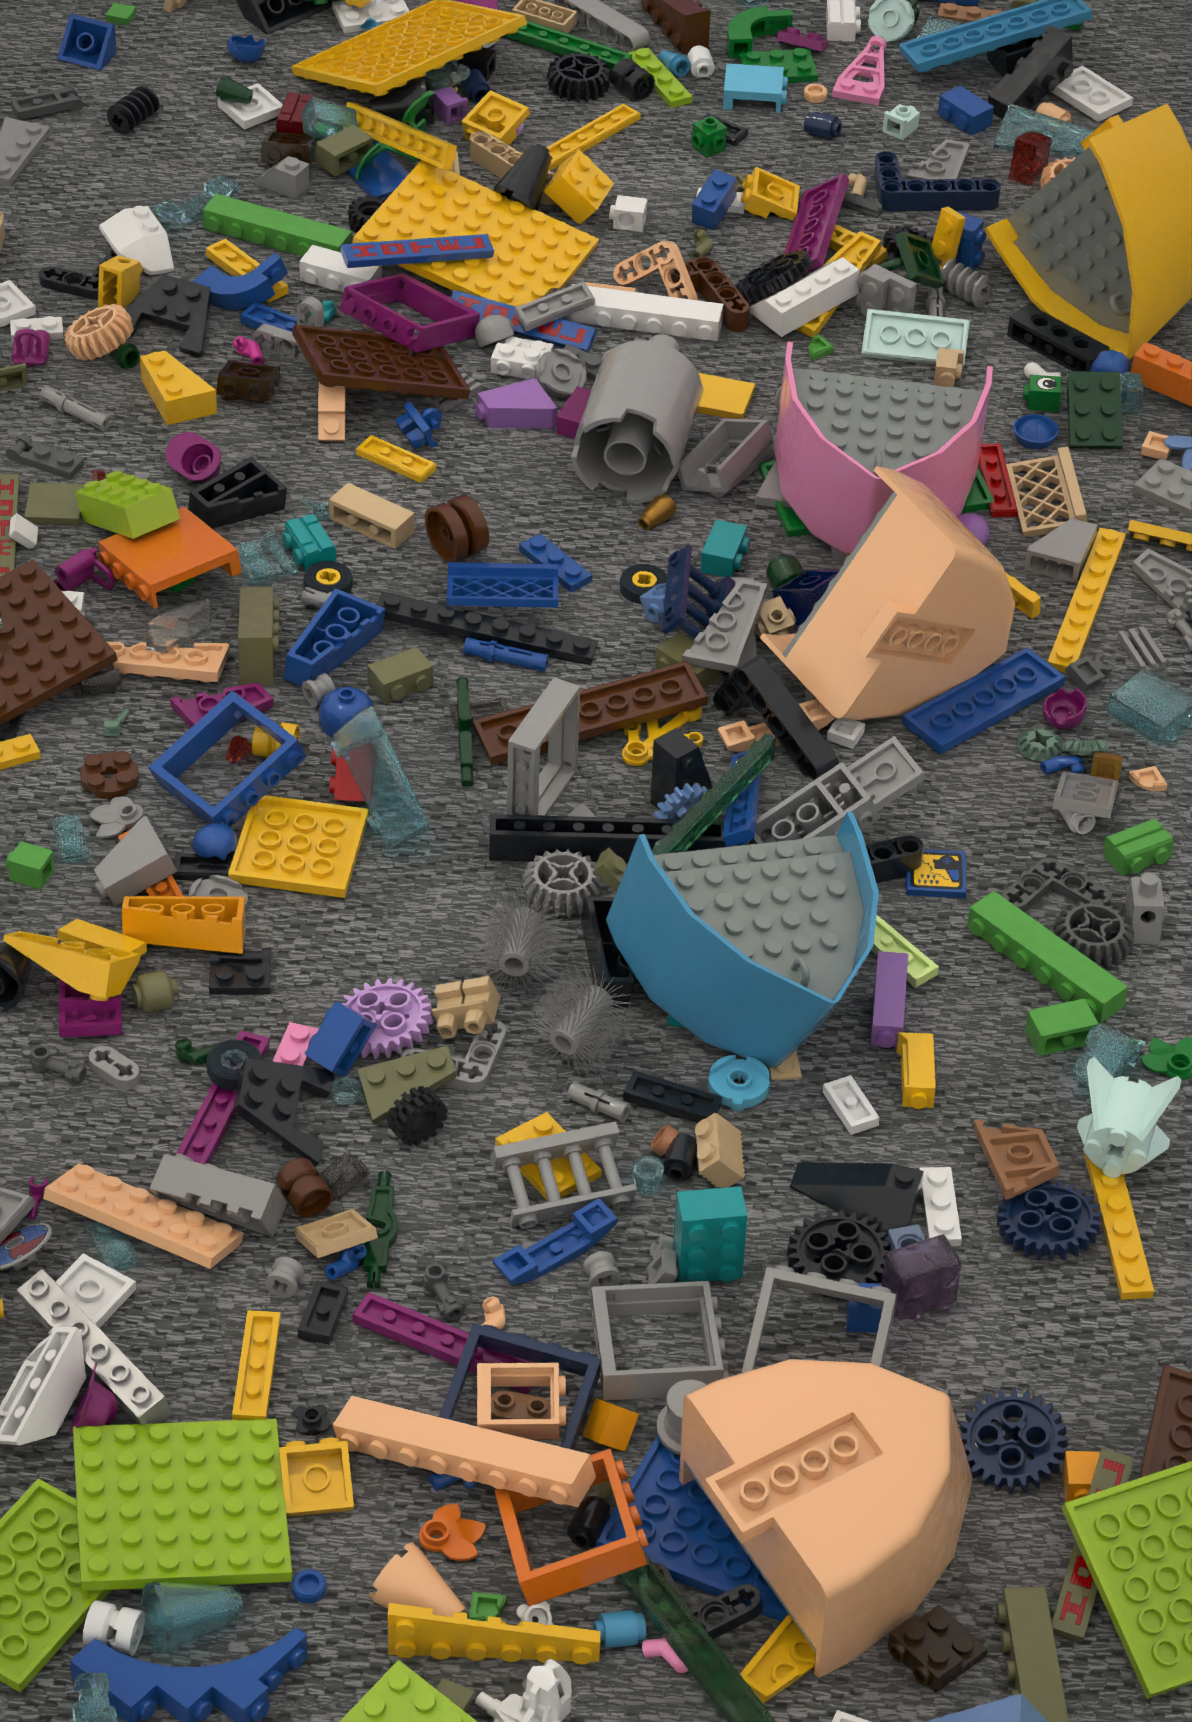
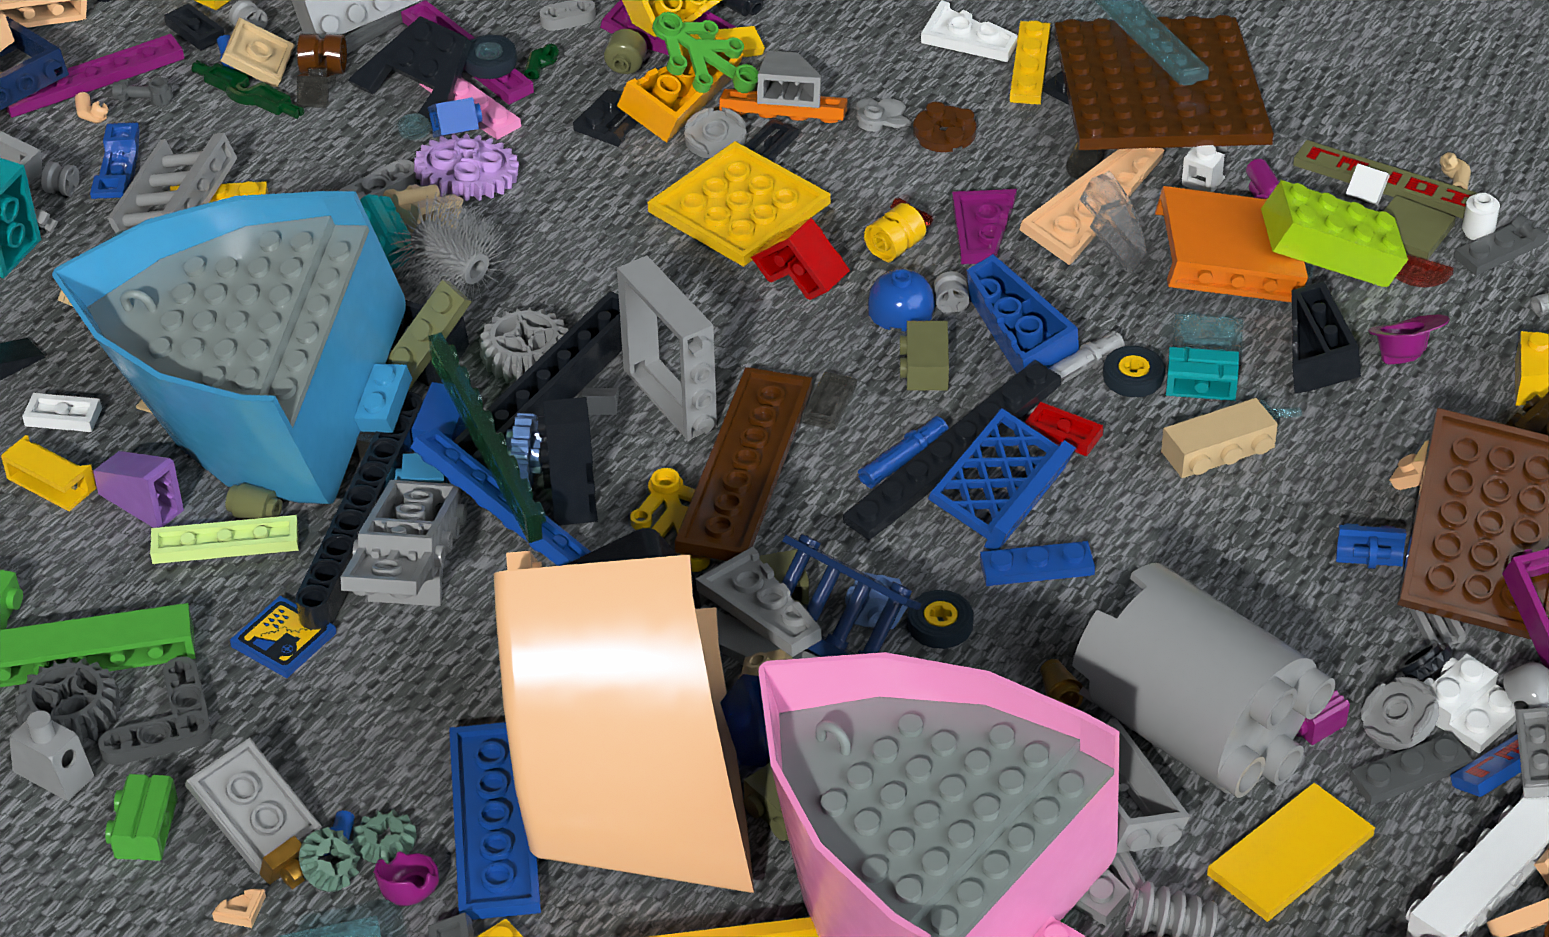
camera: 125 degrees right, 0 degrees up
(30, 463) = (1480, 215): none -> white brick
(30, 865) = (852, 38): bright green brick -> none
(70, 839) = (876, 79): clear light blue plate -> none
(114, 727) = (1013, 151): sand green hand -> none
(160, 907) = (675, 32): none -> bright green plant
(202, 737) = (917, 187): blue window -> none
(215, 840) = (785, 147): blue hair -> none
(257, 635) = (1072, 271): olive wedge -> none
(380, 778) = (742, 275): clear light blue windscreen -> none
(388, 1080) = (381, 150): olive wing -> none
(396, 459) = (1327, 511): yellow tile -> none
(417, 1116) = (325, 131): black tyre -> none
(419, 583) = (1061, 425): none -> red plate
(457, 528) = (1127, 473): reddish brown wheel -> none
(464, 733) = (813, 364): dark green piece -> none
(502, 365) = (1425, 661): none -> black gear
(515, 1005) = (385, 222): none -> teal brick
(517, 406) = (1357, 646): medium lavender slope -> none

